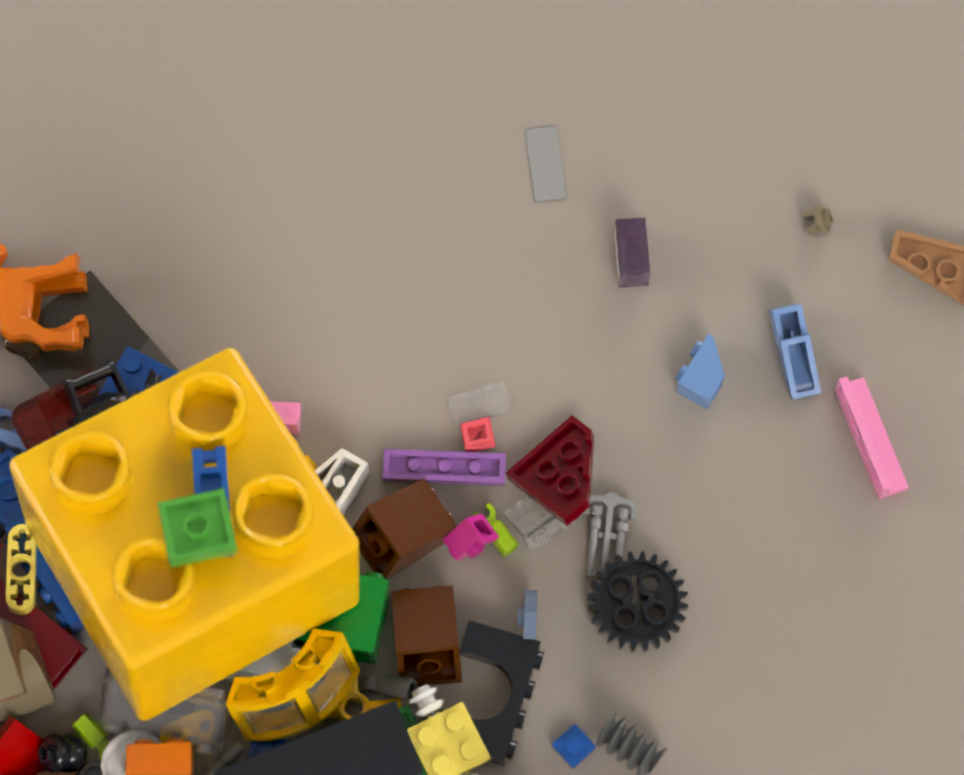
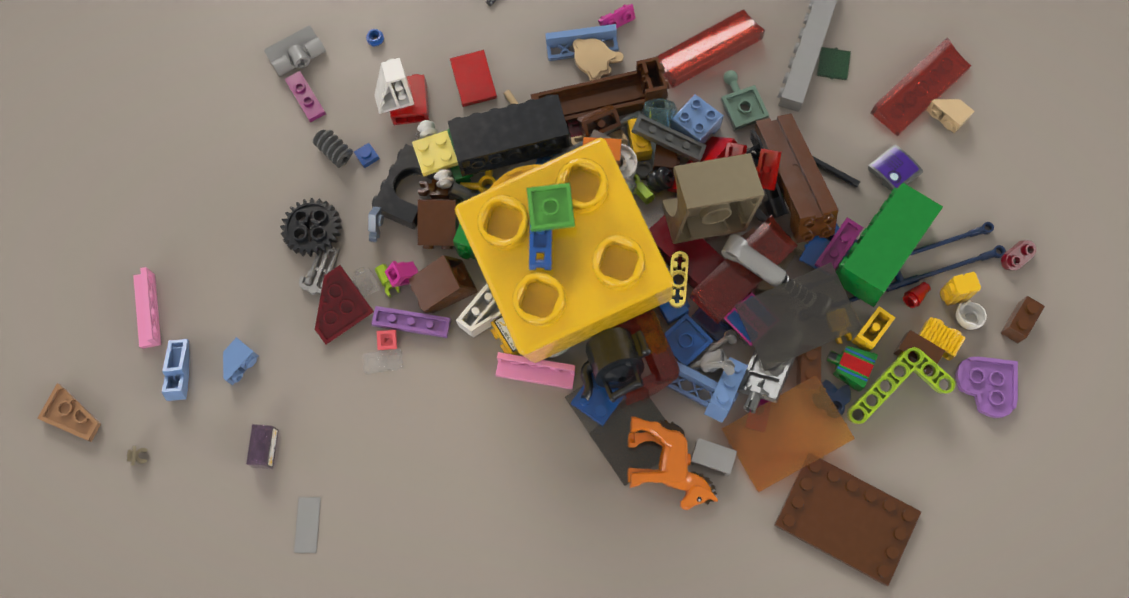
camera: 170 degrees left, 0 degrees up
(445, 693) = (434, 191): none -> reddish brown plate

